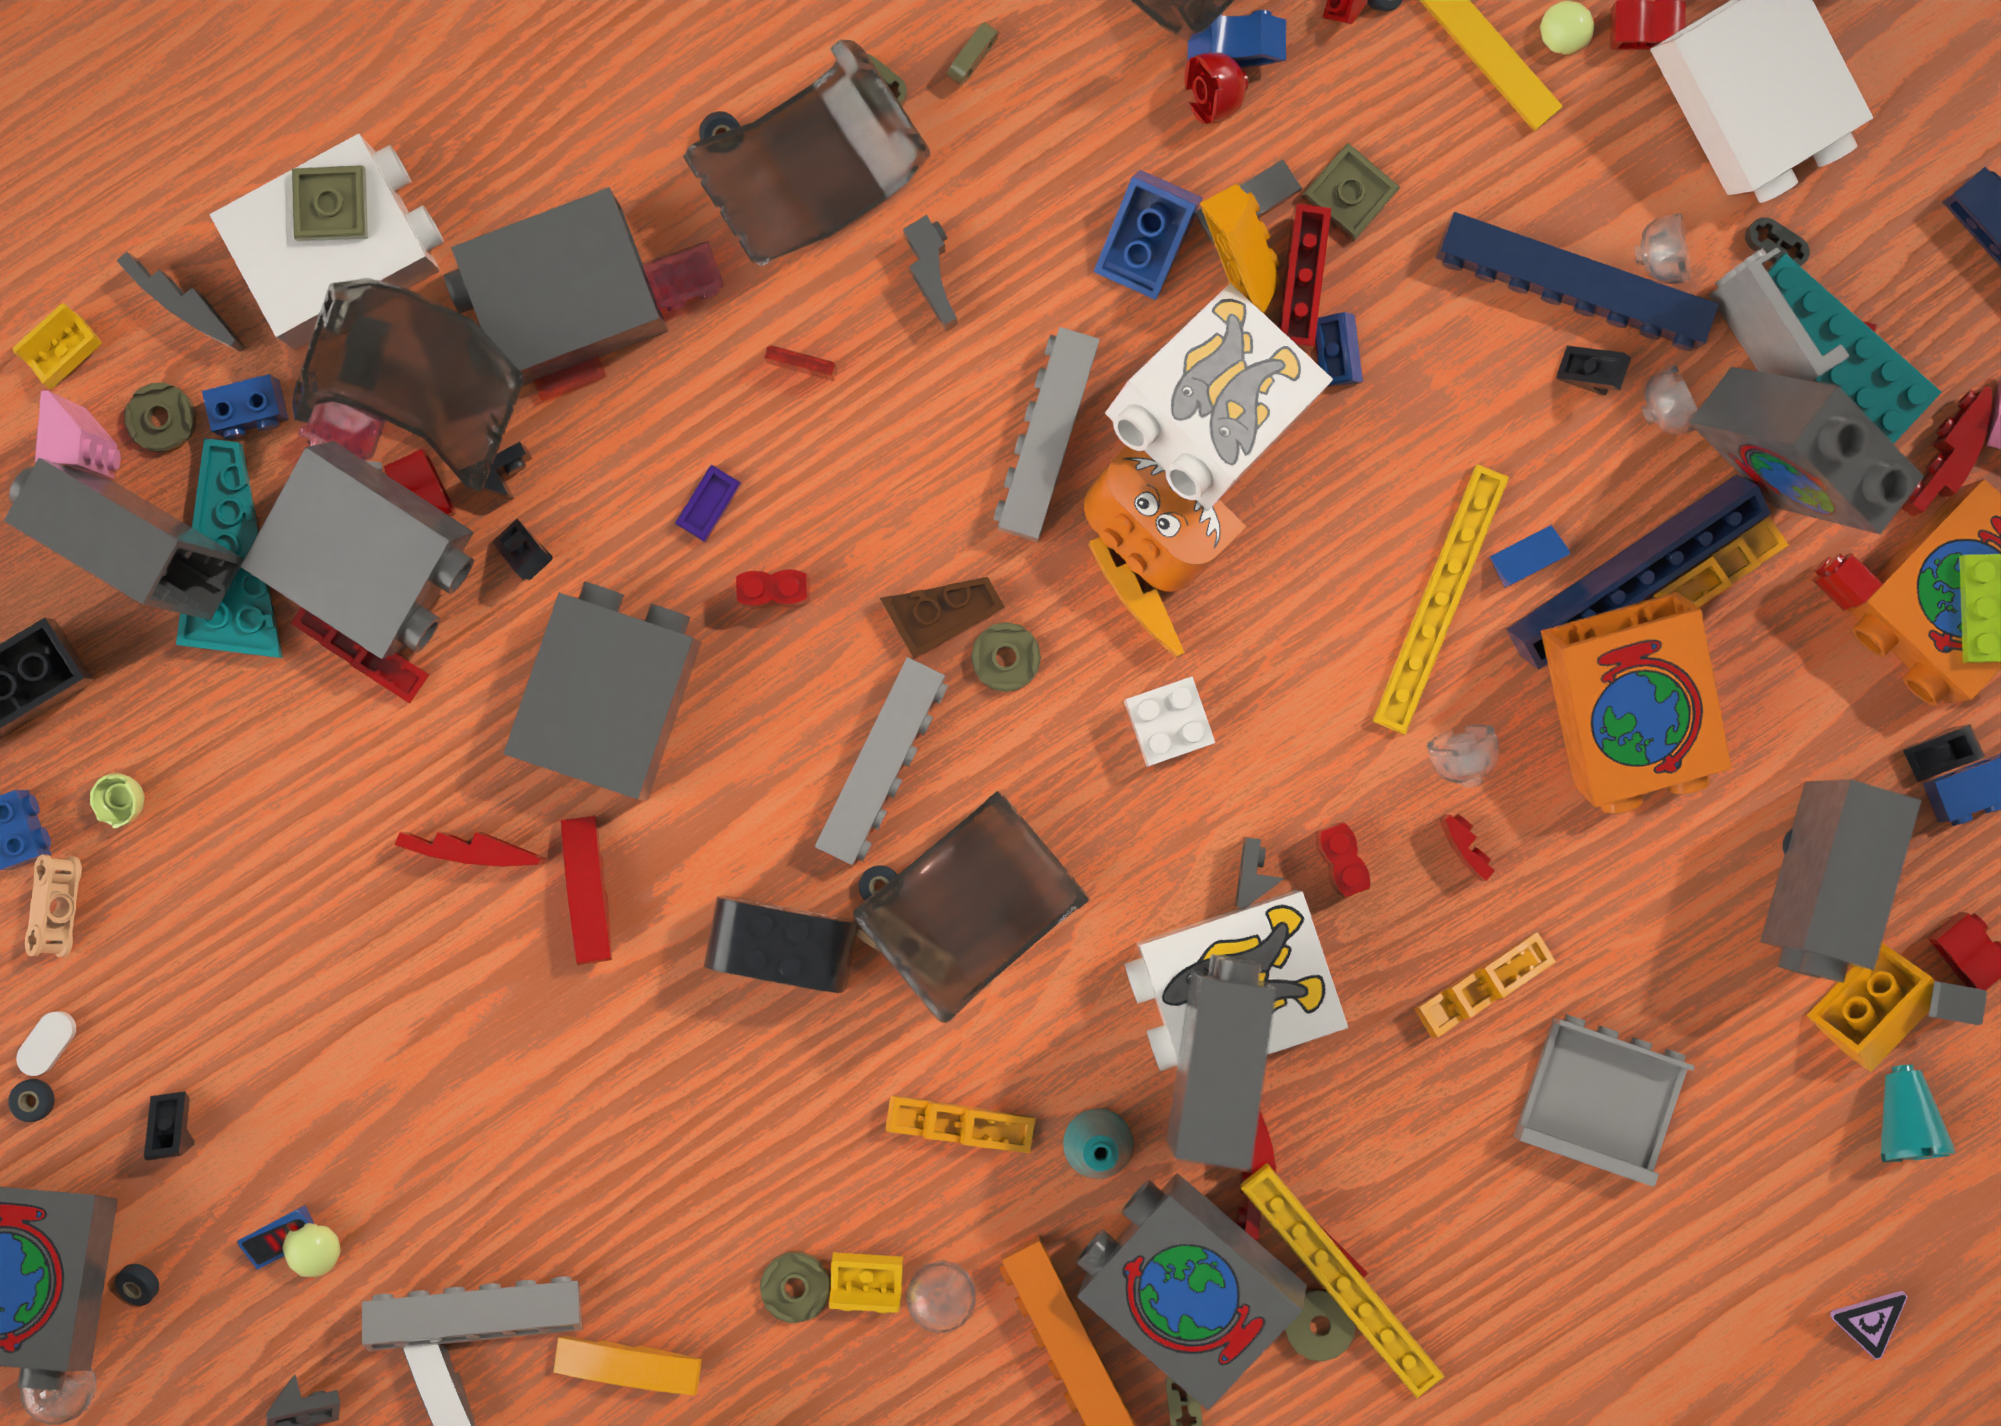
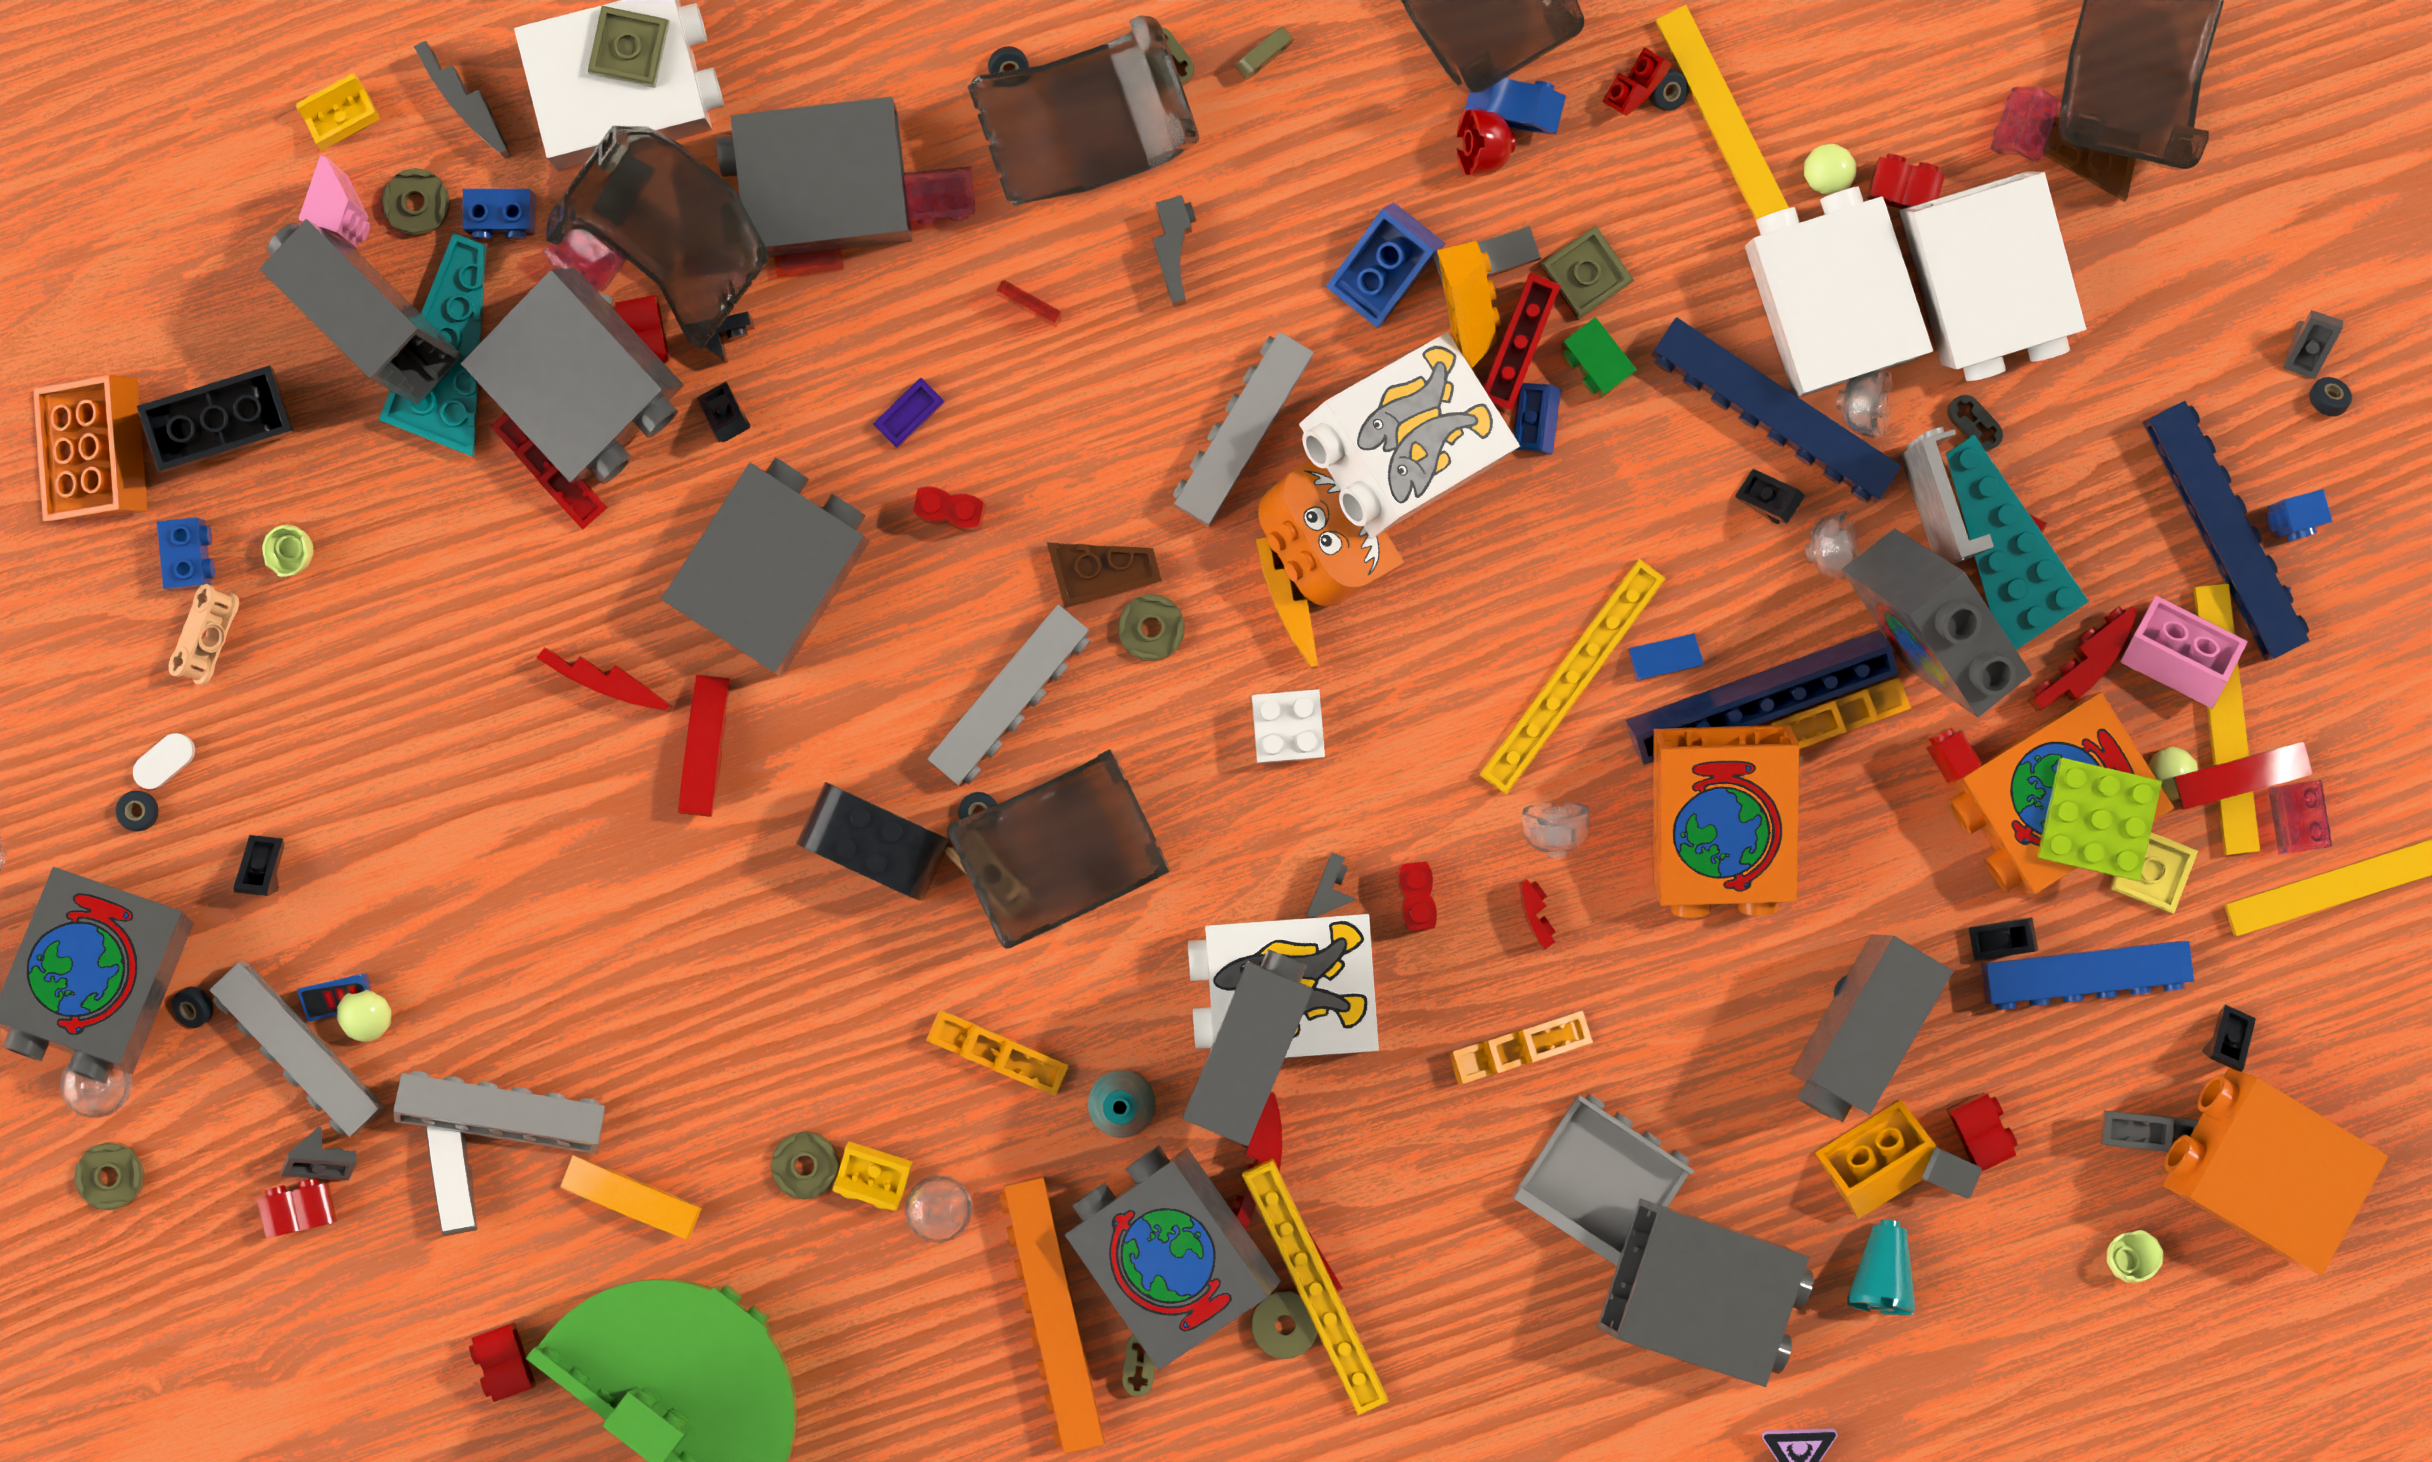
camera: 10 degrees right, 0 degrees up
(251, 1301) = (296, 1049): none -> light grey brick
(1384, 274) = (1597, 358): none -> green brick
(1609, 145) = (1836, 292): none -> white brick
(1740, 1189) = (1705, 1293): none -> dark grey brick

